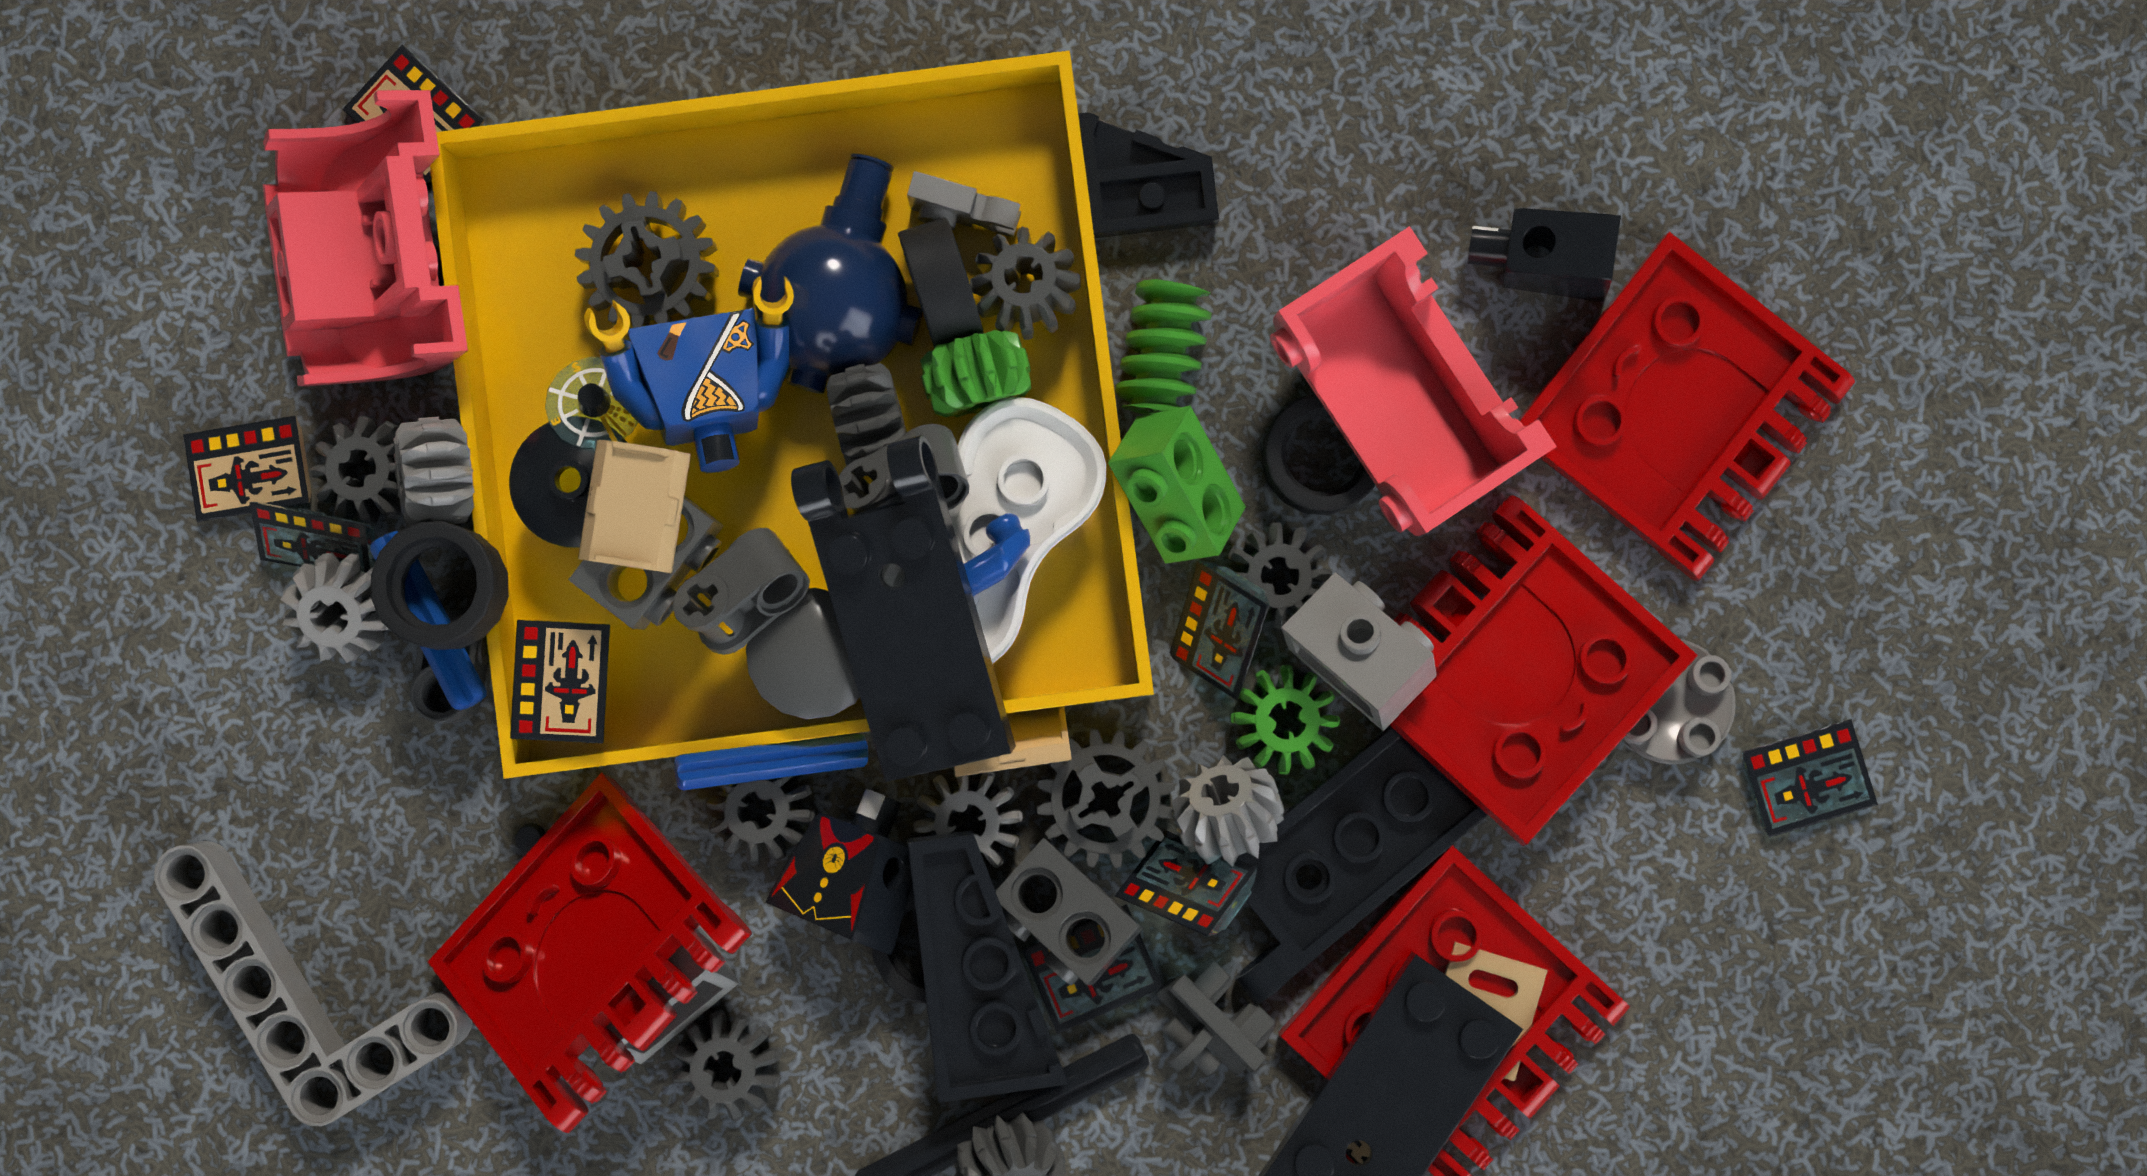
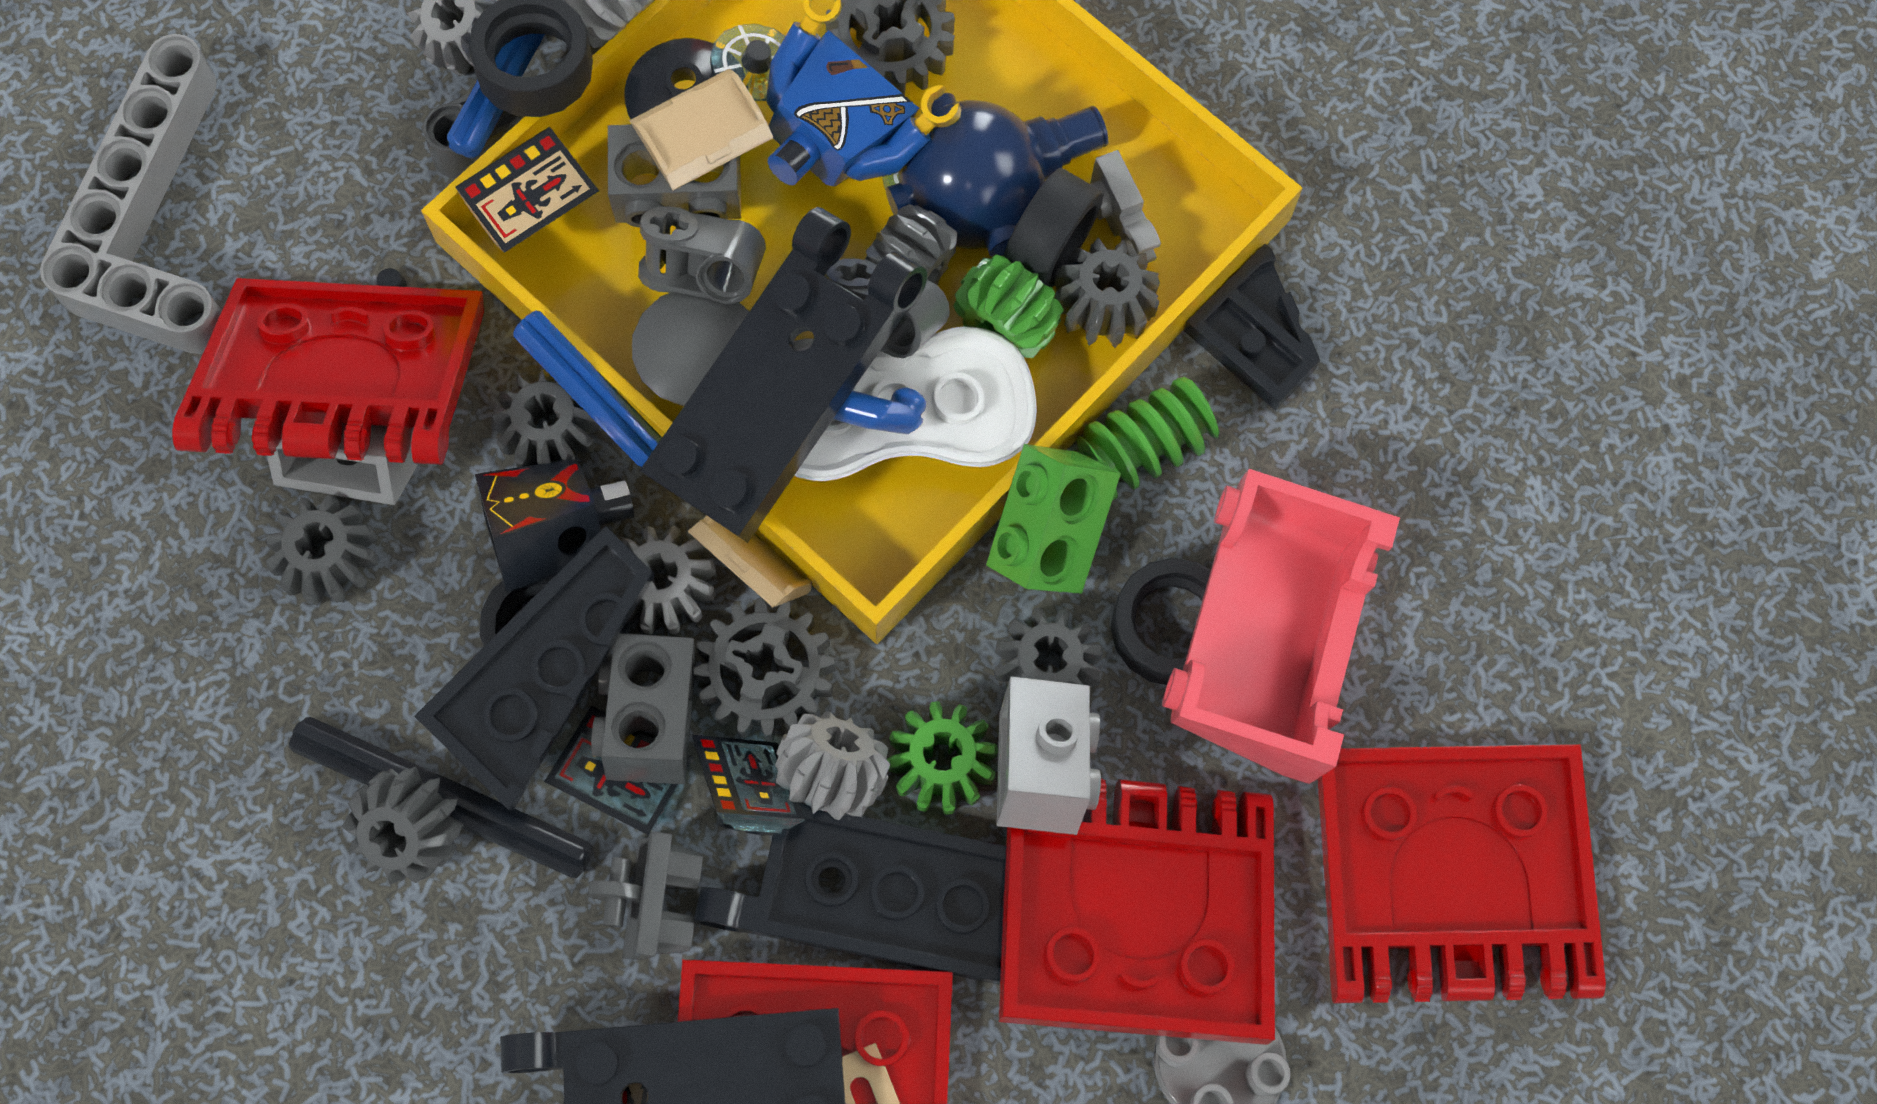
camera: 45 degrees right, 15 degrees down
(1219, 627) = (971, 643): piece -> none
(1579, 248) = (1483, 665): black torso -> none

